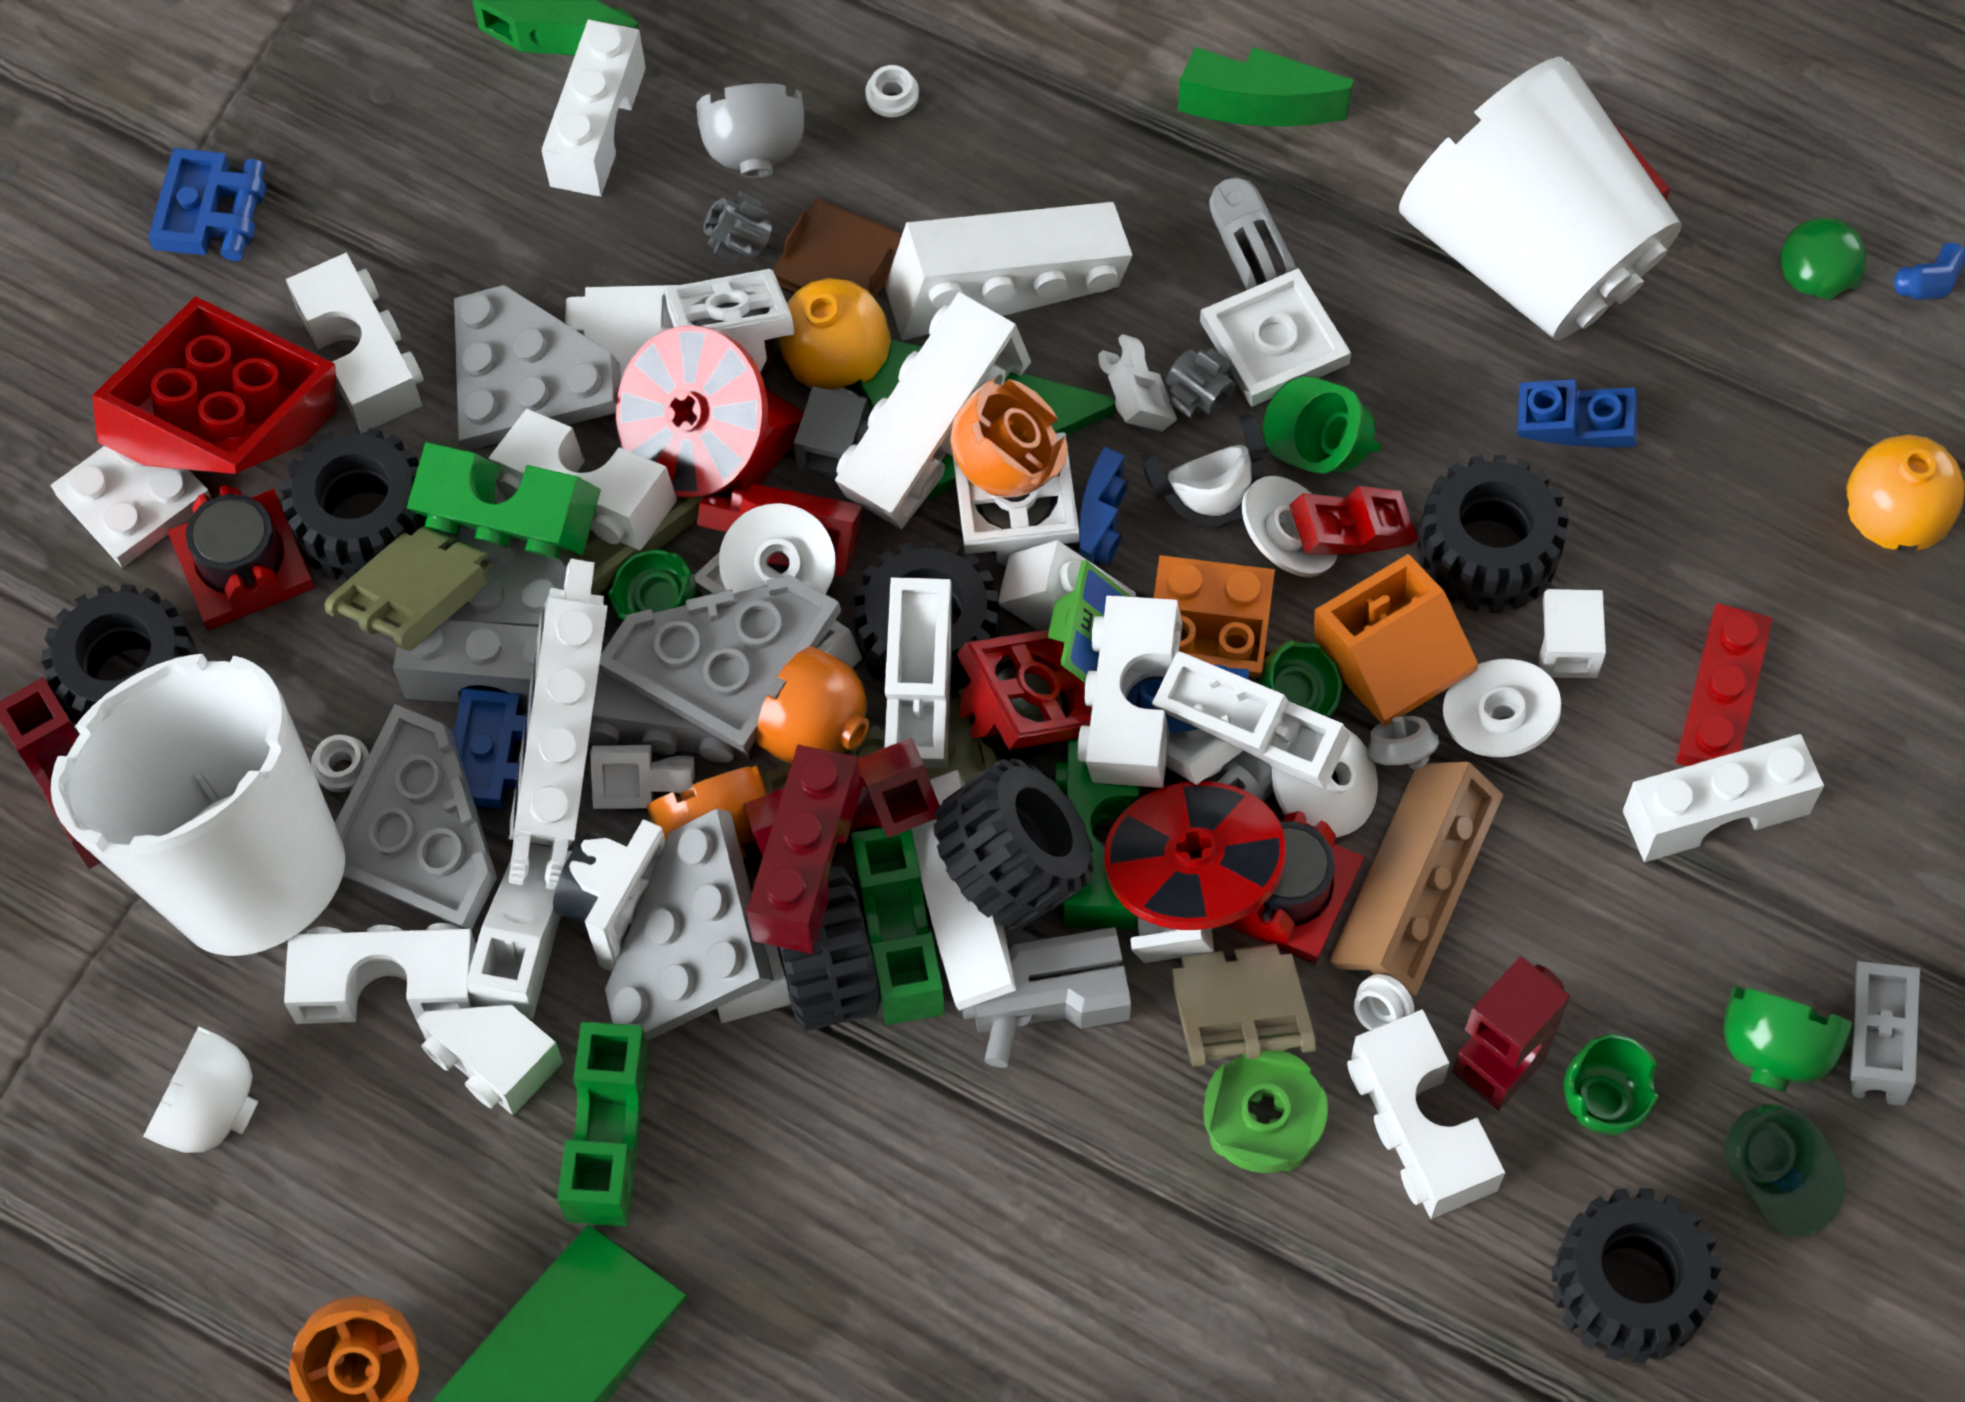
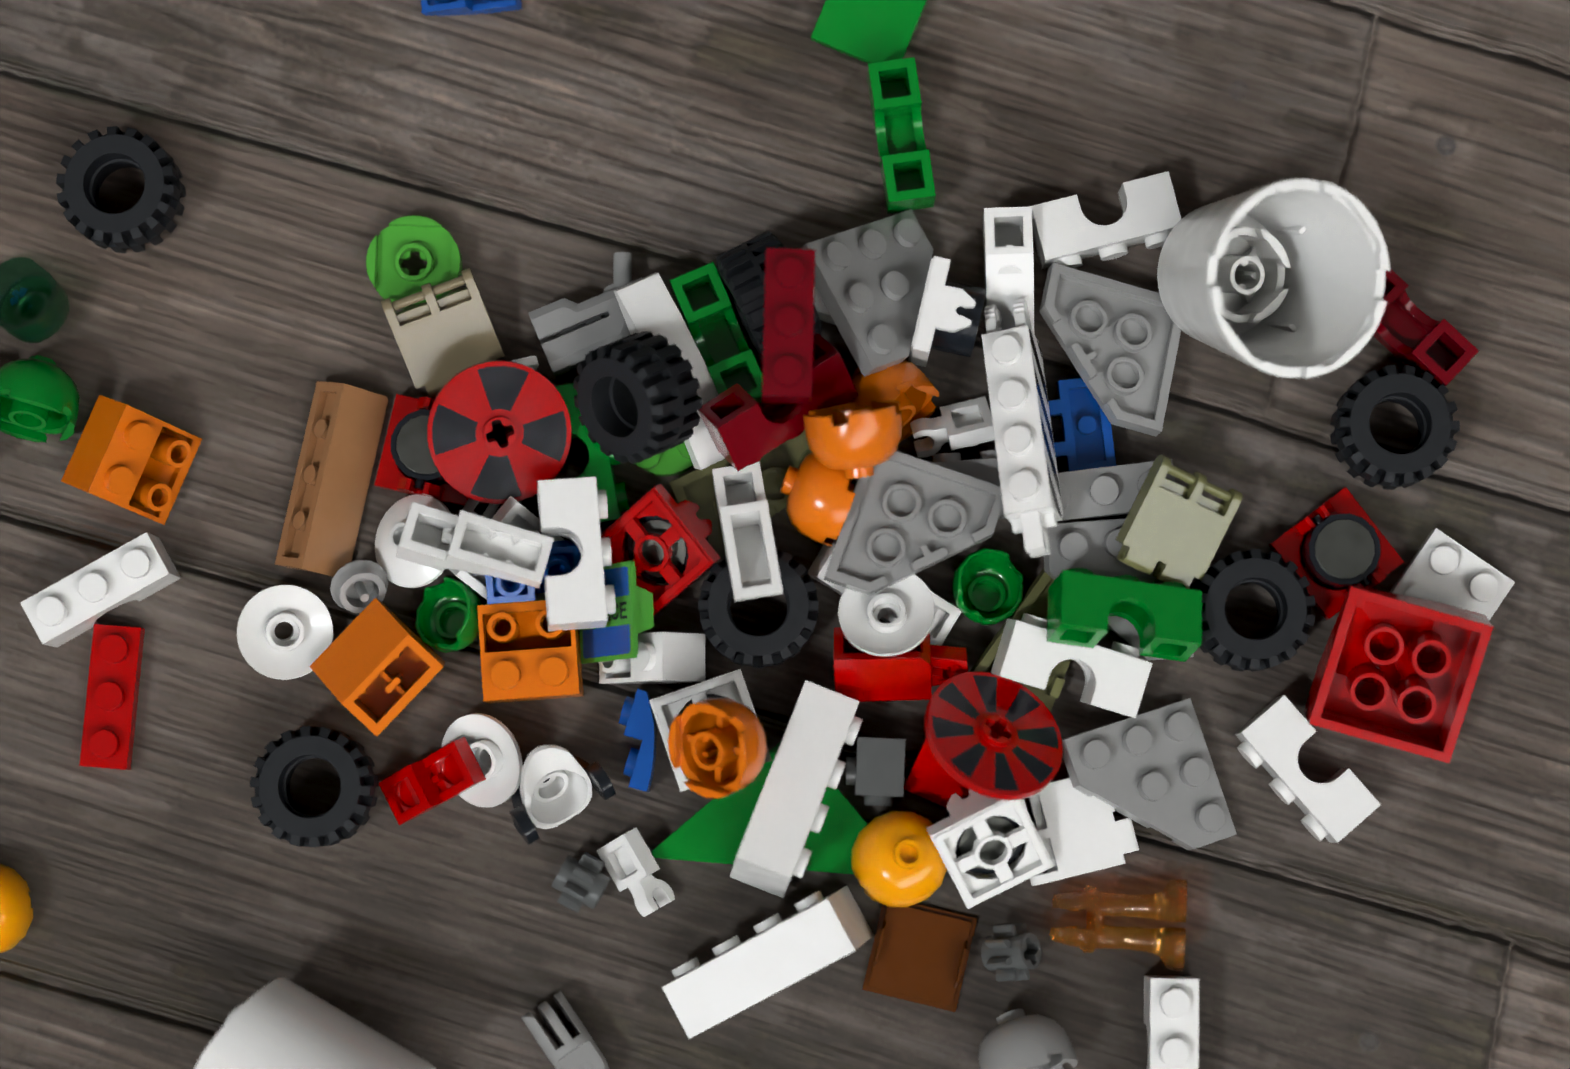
camera: 170 degrees right, 20 degrees up
(191, 200) = (1495, 883): blue plate -> none
(204, 1097) = (1208, 92): white cylinder -> none
(329, 753) = (1208, 385): white plate -> none
(495, 1049) = (1003, 179): white slope -> none
(642, 256) = (1164, 942): none -> clear orange piece
(754, 733) = (854, 435): none -> orange cylinder
(1275, 336) = (528, 946): white plate -> none
(1319, 426) = (474, 857): green piece -> none
(1381, 1001) = (339, 363): white plate -> none
(1441, 1162) = (272, 248): white arch -> none
(1511, 1031) = (232, 336): dark red arch -> none
(1573, 633) = (236, 711): white panel -> none
(1588, 418) = (262, 929): blue slope -> none
(1611, 1085) = (158, 332): green hair -> none
(1668, 944) = (131, 459): none -> orange slope

